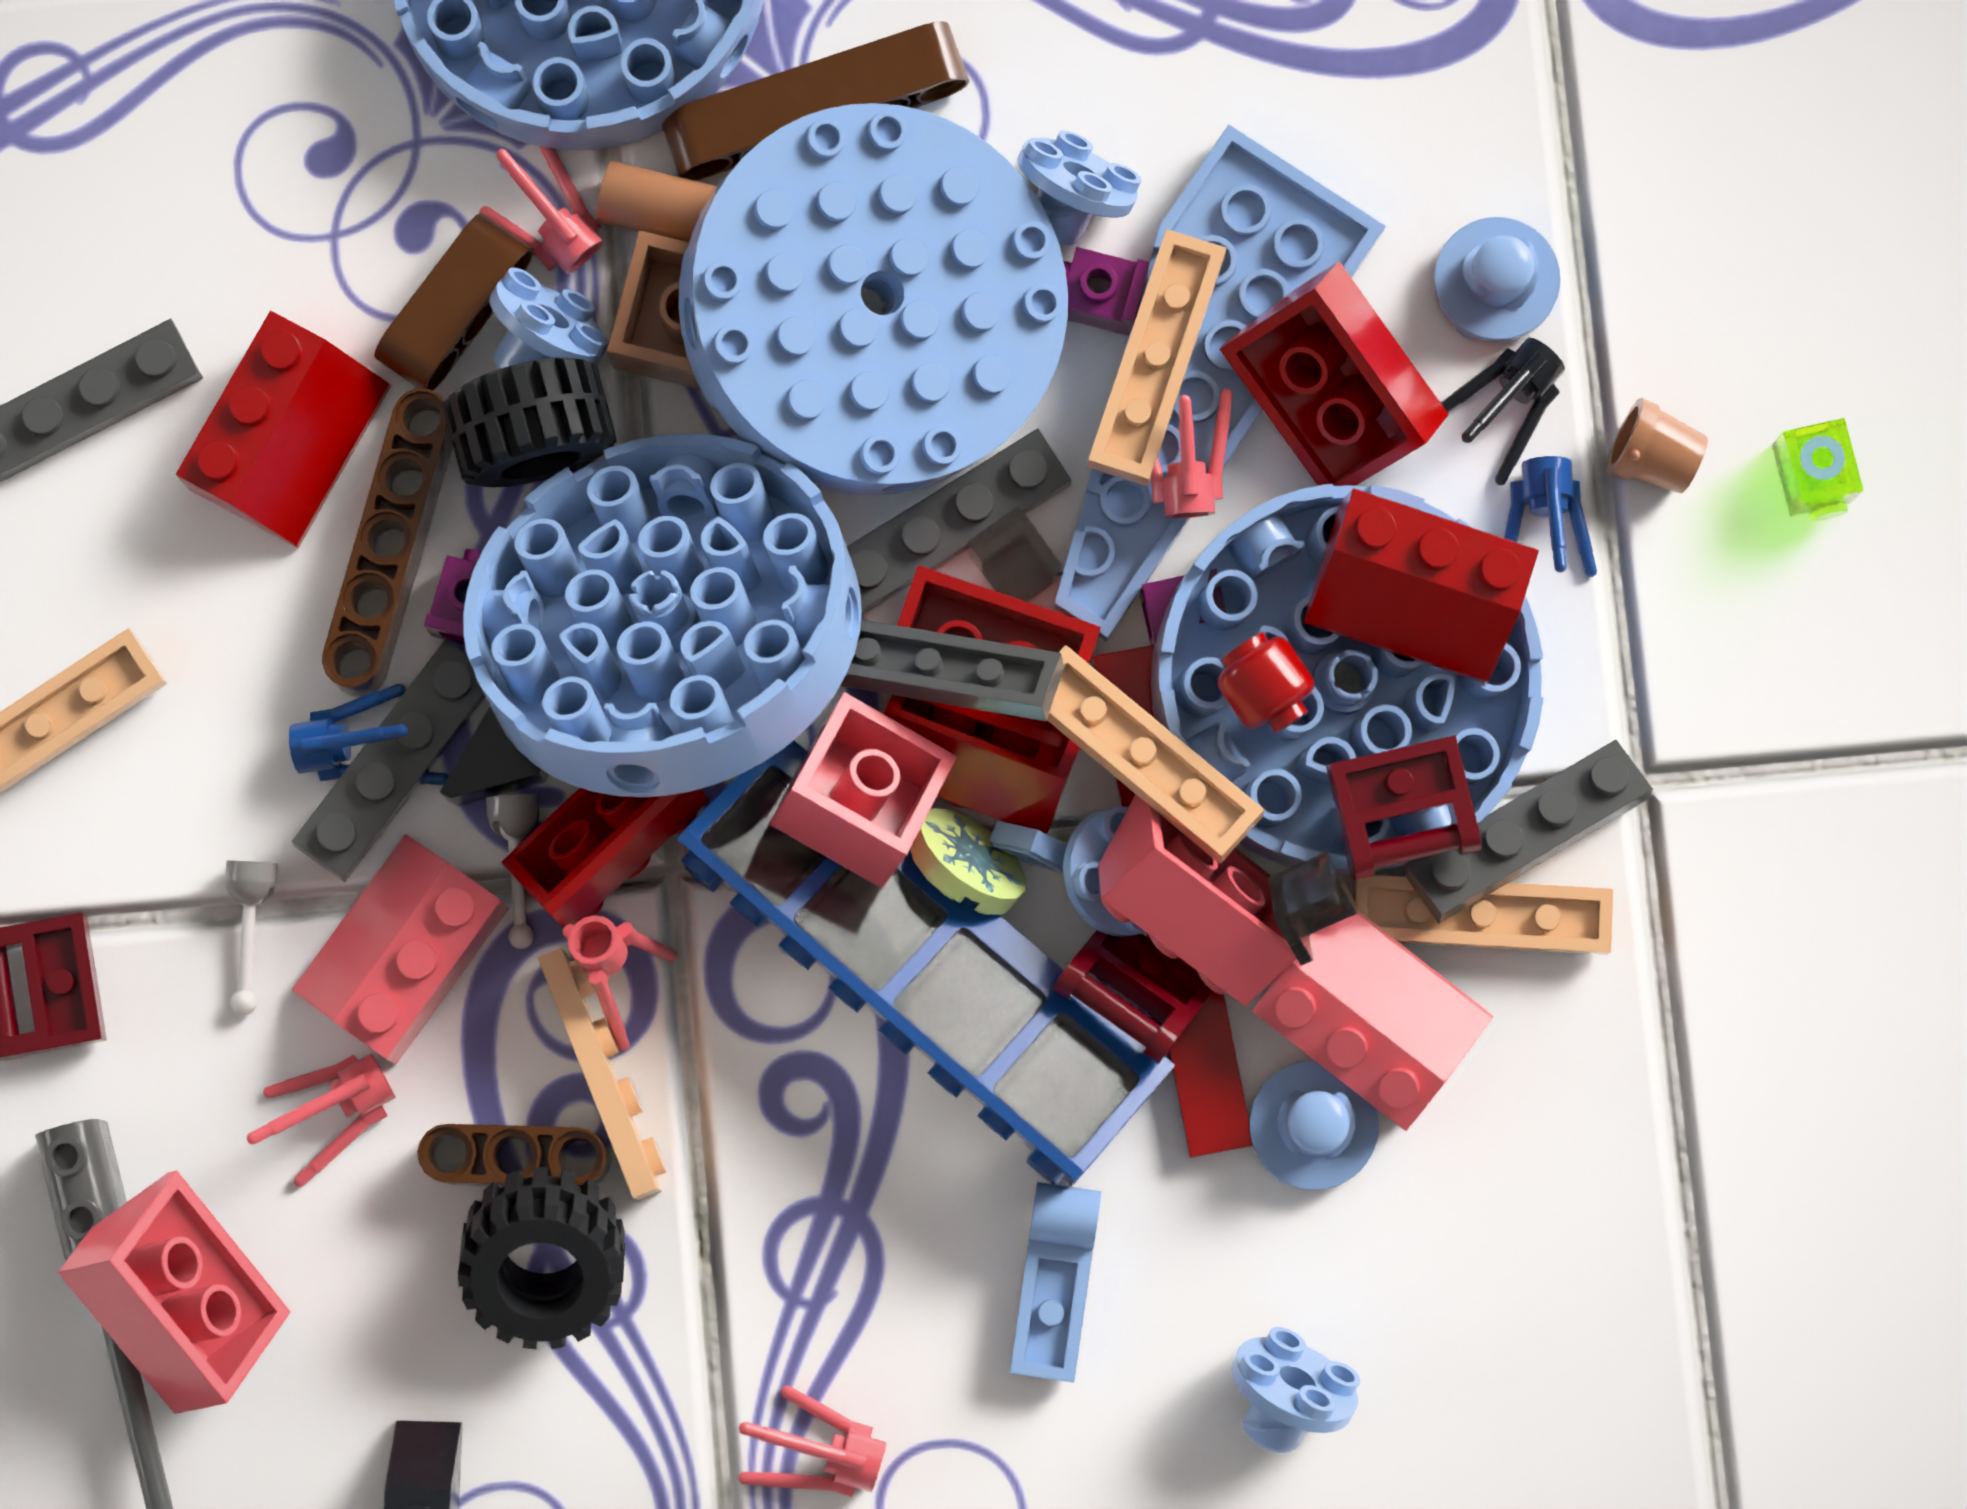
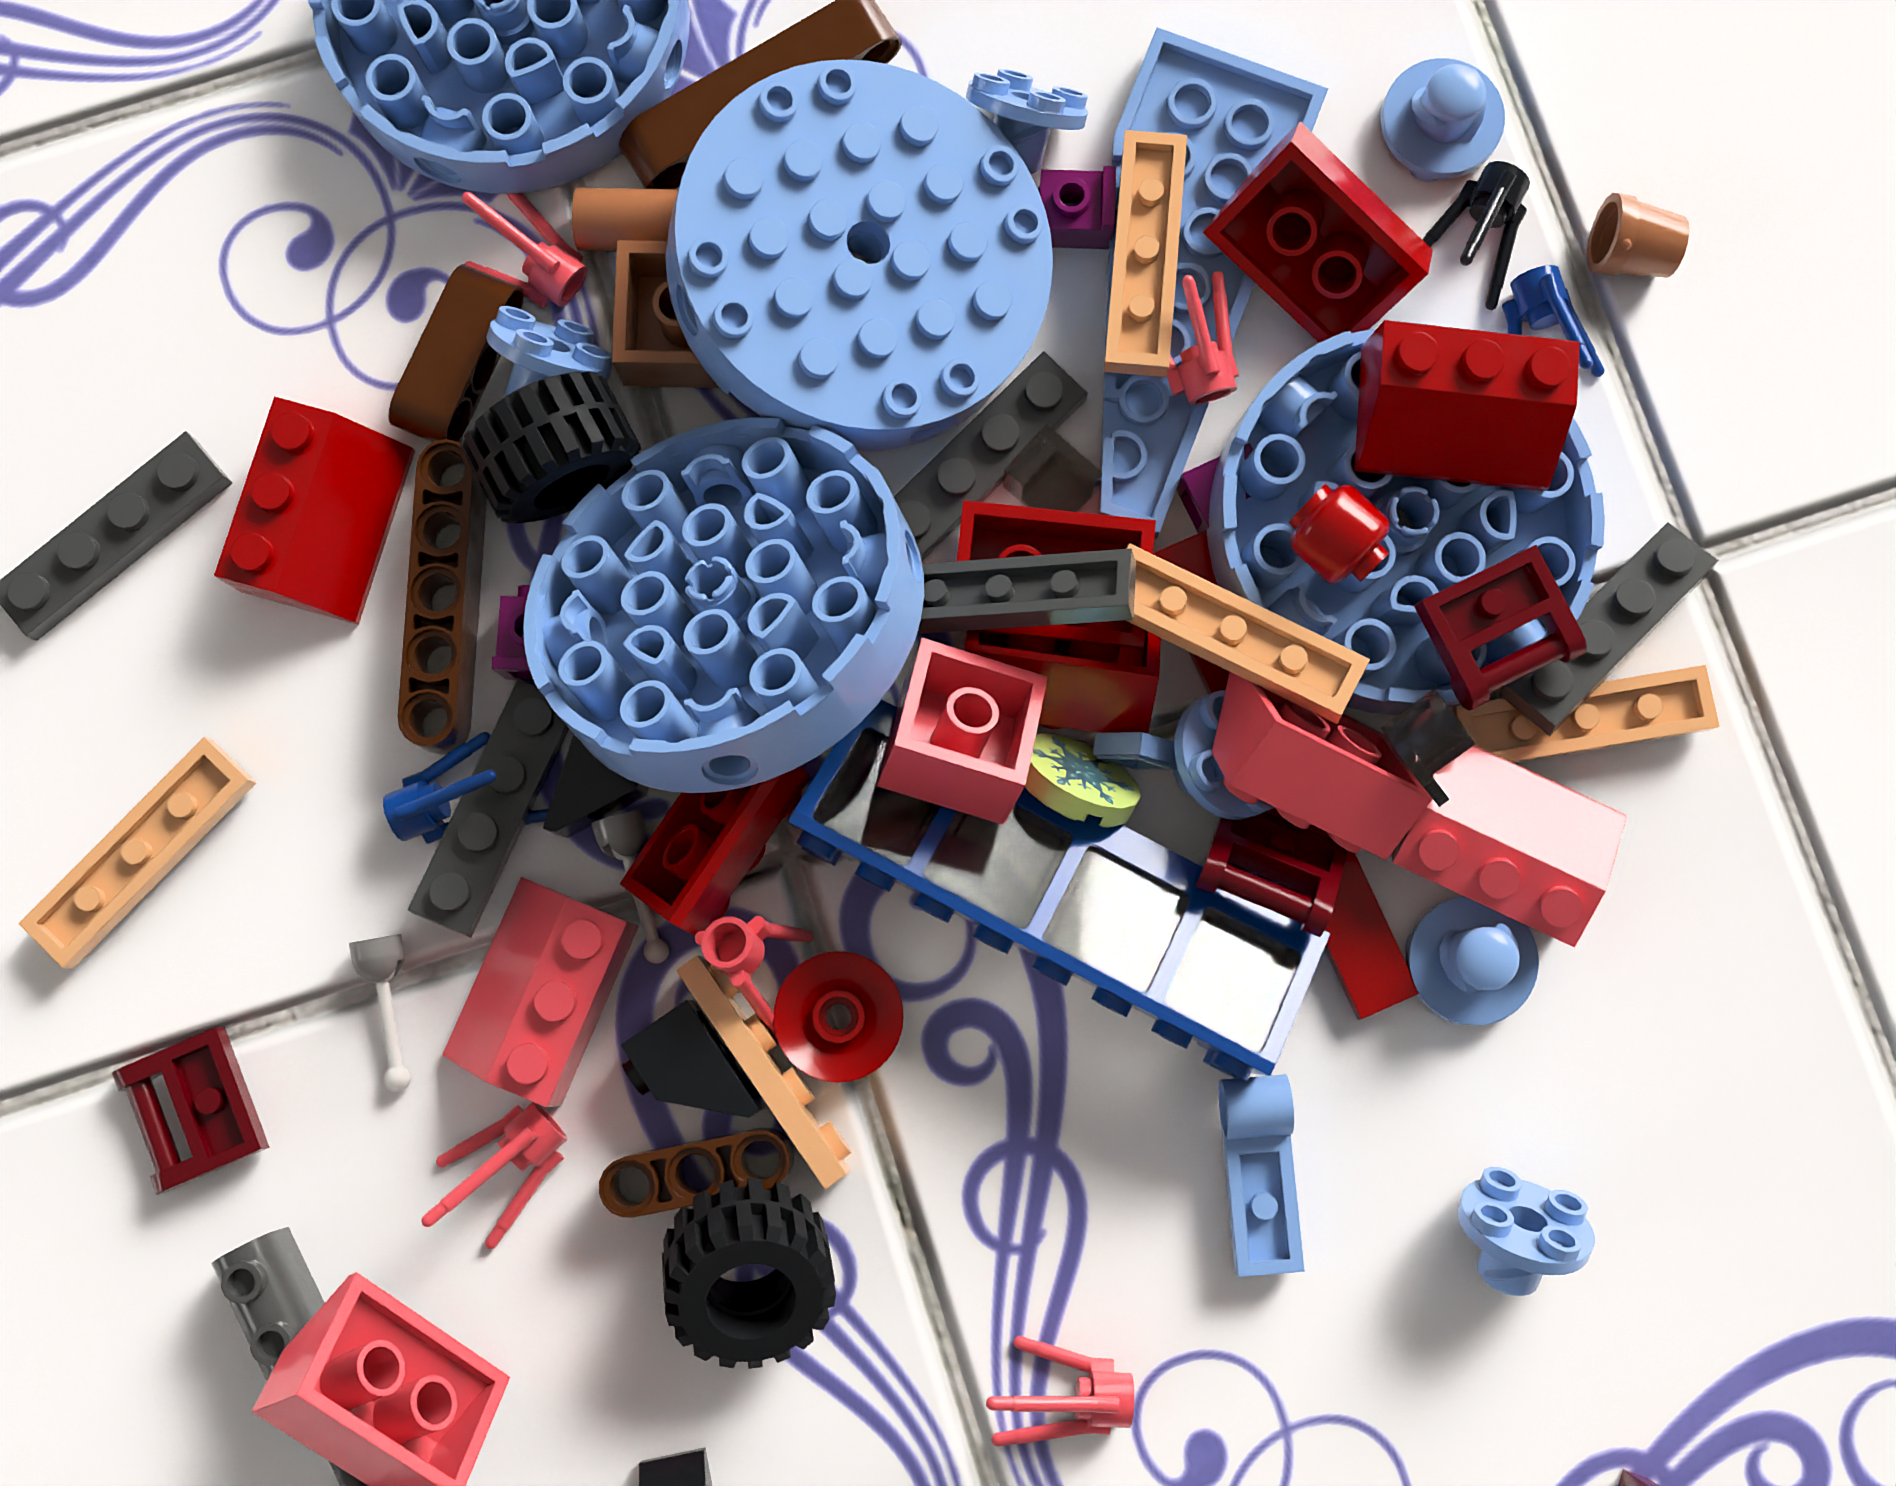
camera: 10 degrees left, 0 degrees up
(528, 1051) = (688, 1064): none -> black slope
(677, 1004) = (803, 1008): none -> red dish
(1818, 469) = (1793, 225): clear neon green brick -> none

